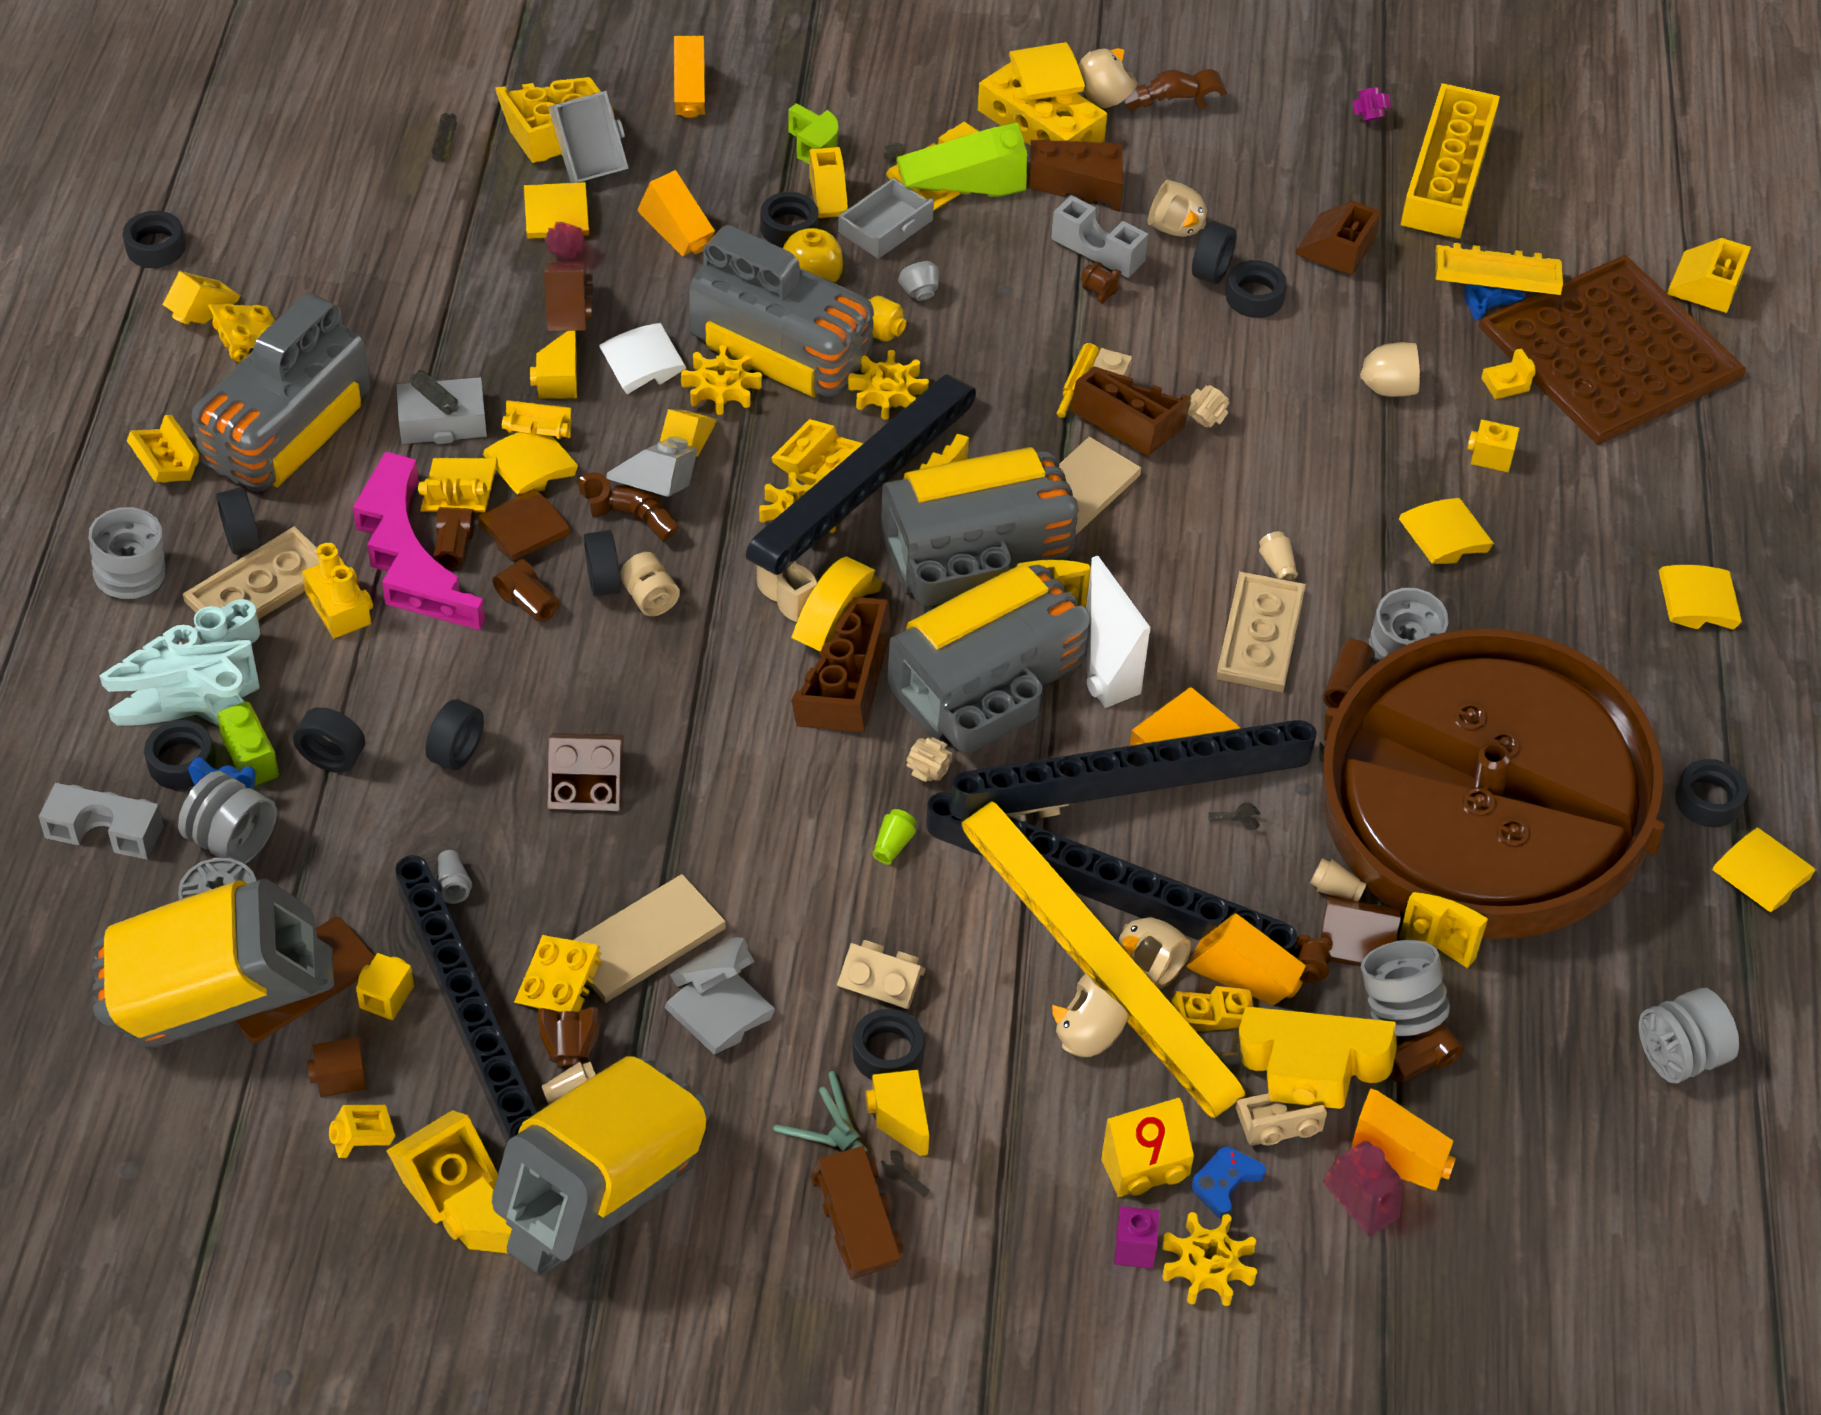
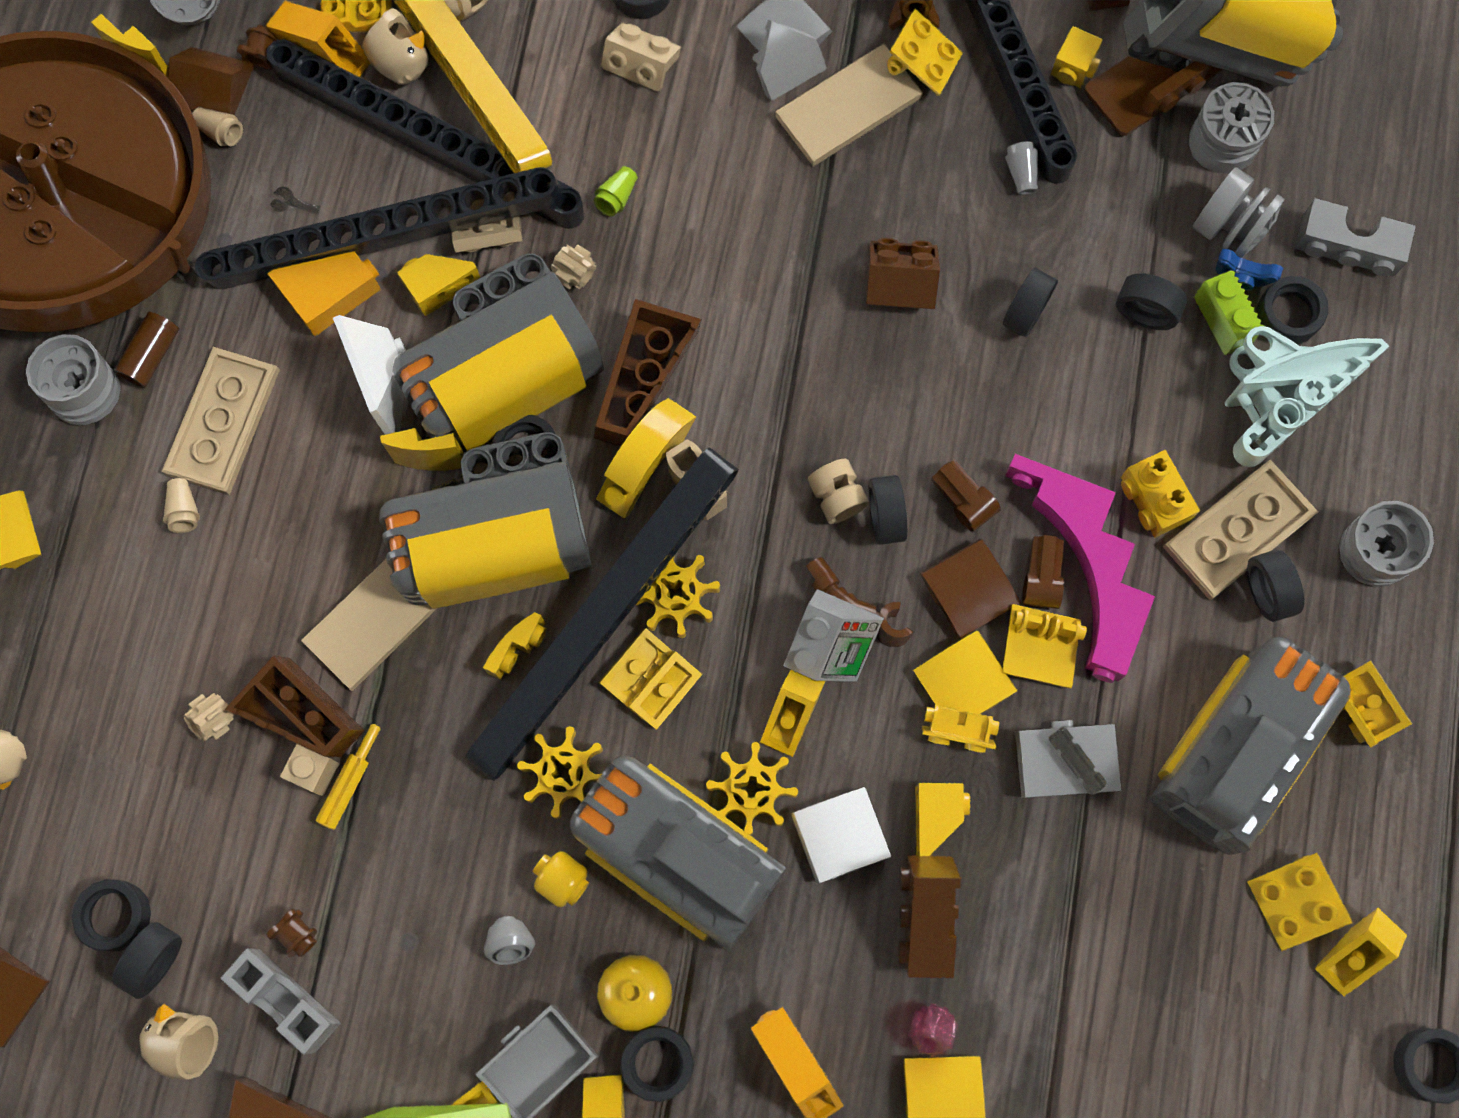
camera: 170 degrees left, 25 degrees up
(1070, 736) = (436, 280): none -> yellow slope

